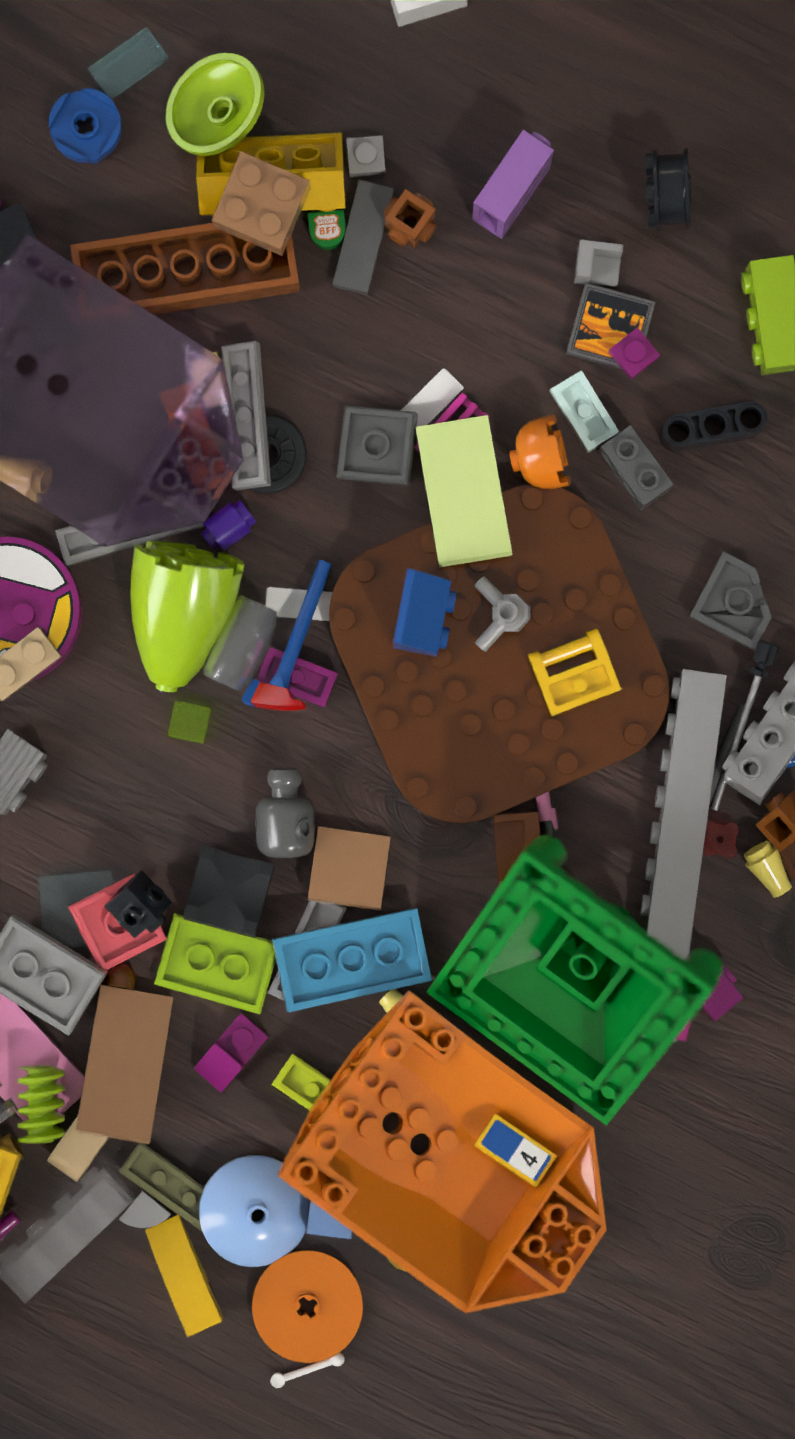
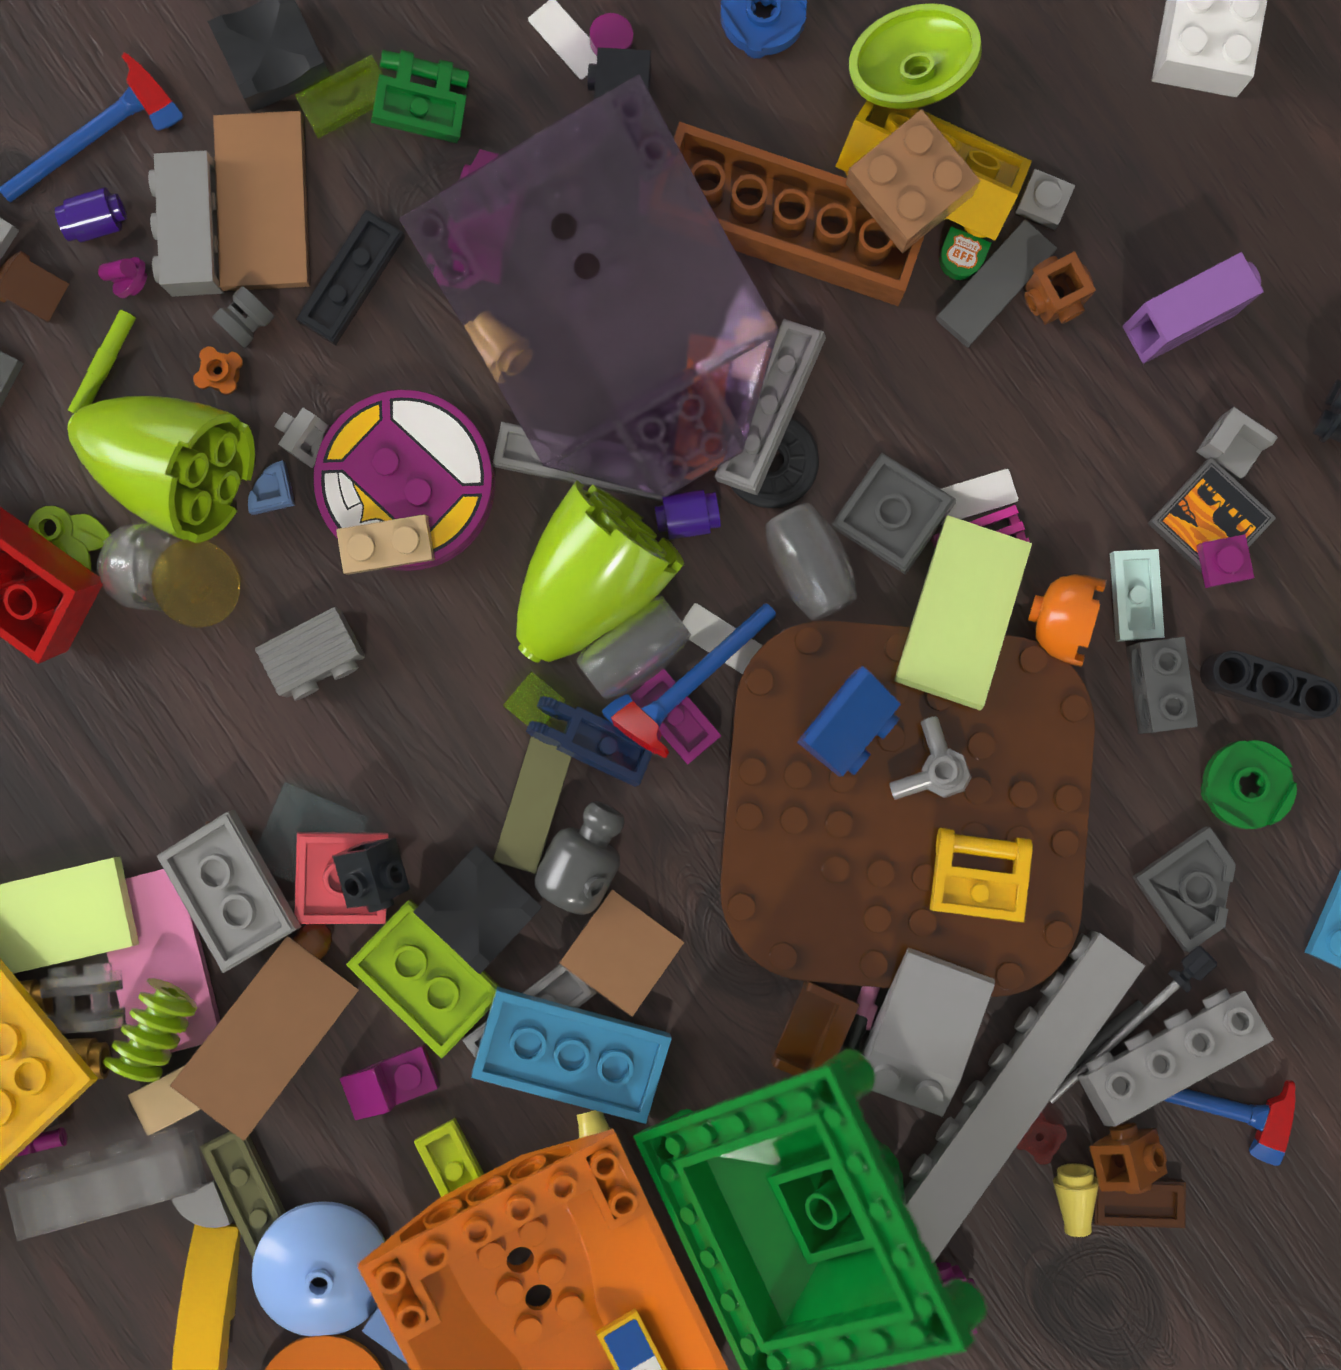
camera: 30 degrees right, 0 degrees up
(228, 794) = (532, 806): none -> olive tile
(246, 727) = (592, 741): none -> dark blue hinge
(335, 513) = (810, 561): none -> clear piece
(594, 805) = (926, 1030): none -> light grey slope
(751, 490) = (1274, 777): none -> green plate

